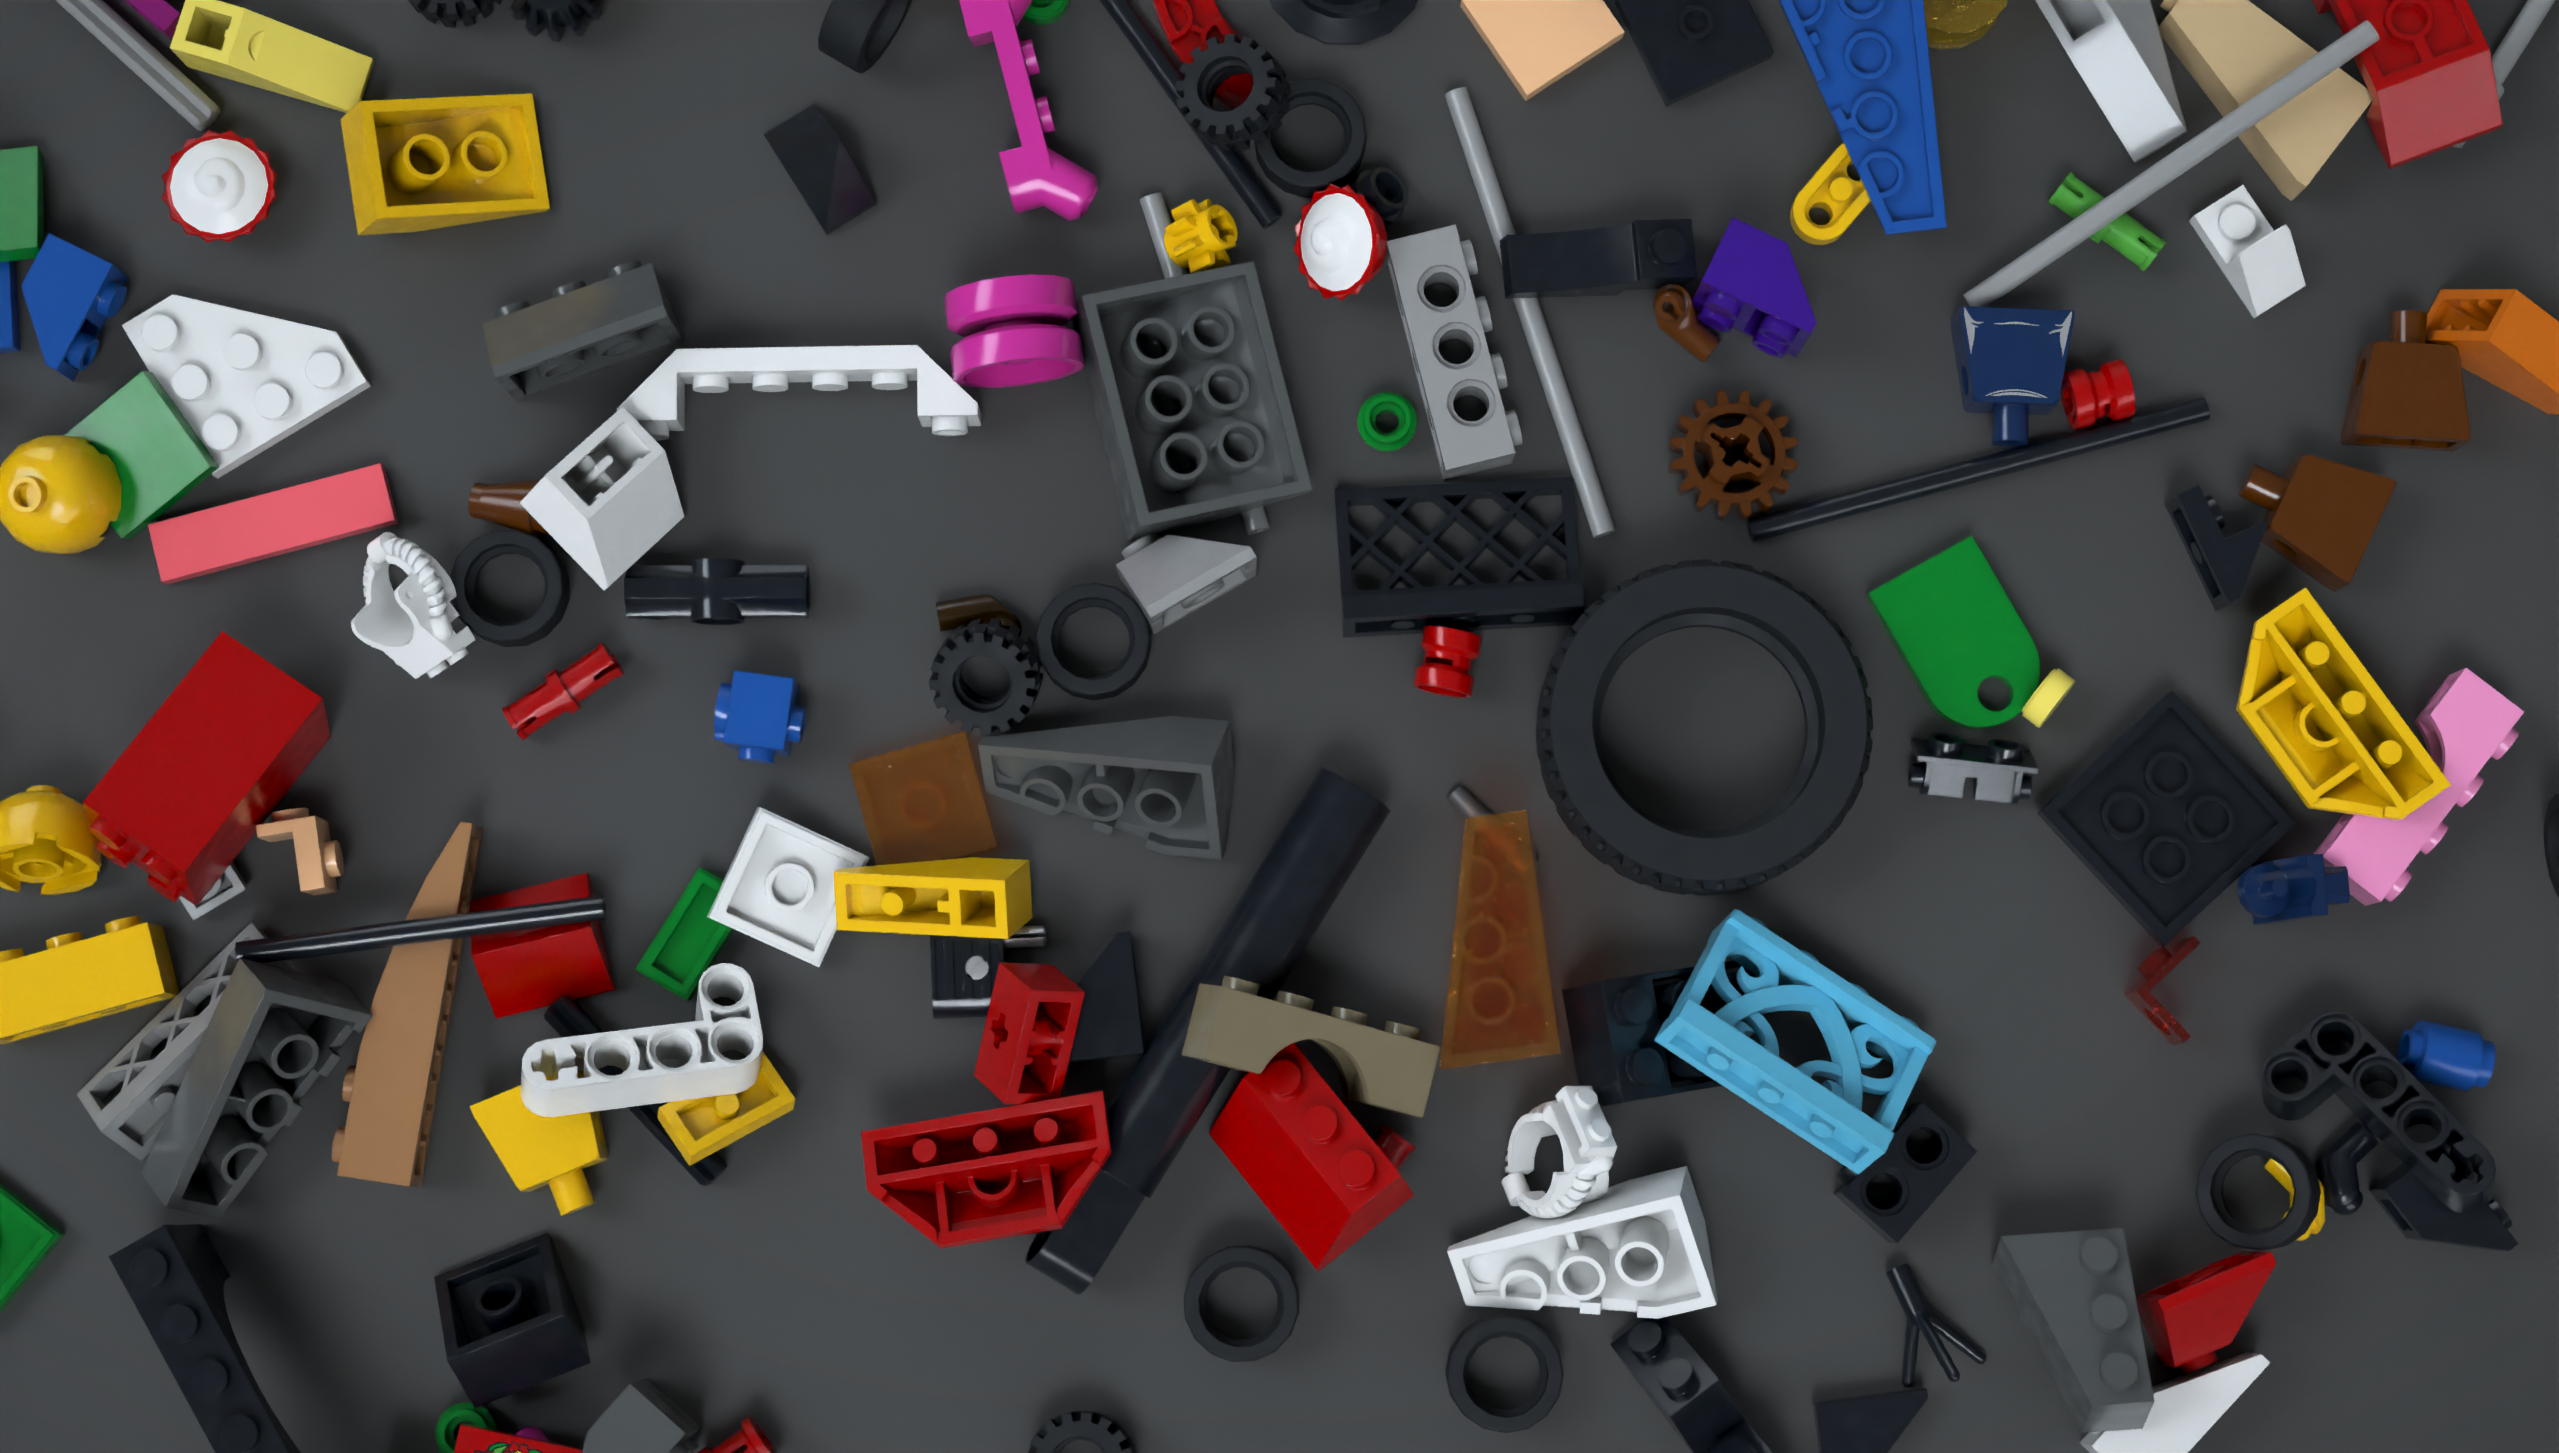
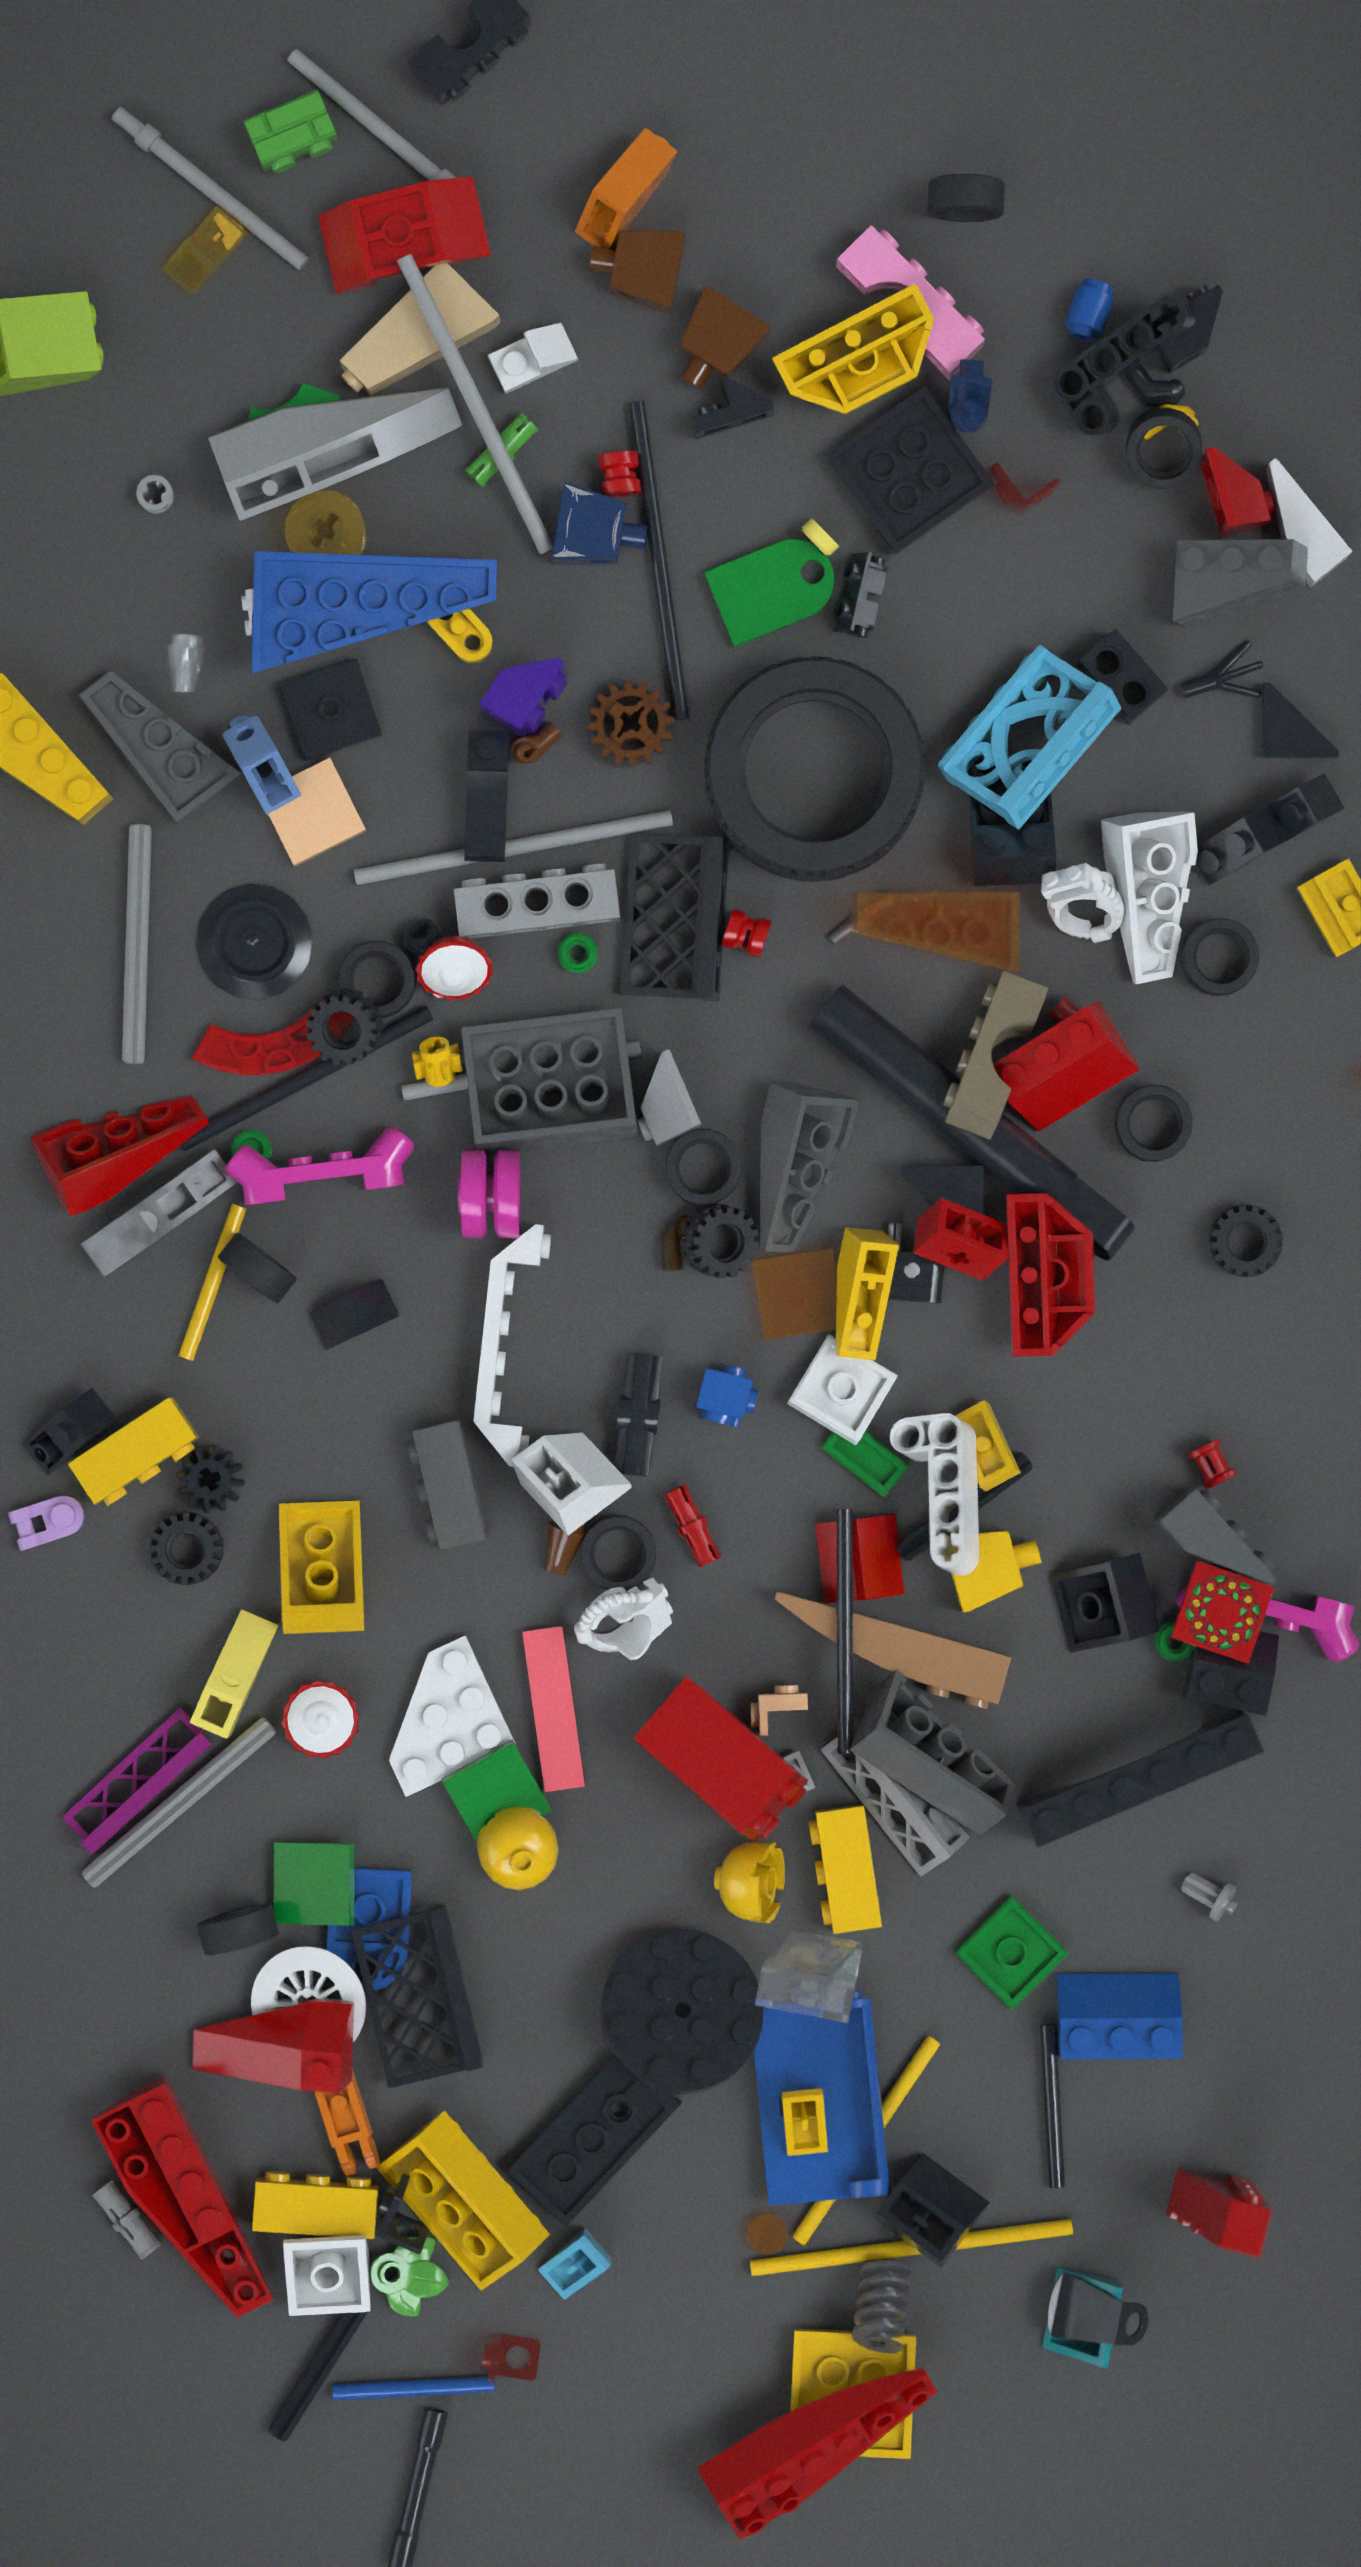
camera: 80 degrees left, 5 degrees up
(69, 302) = (385, 1830): blue slope -> none

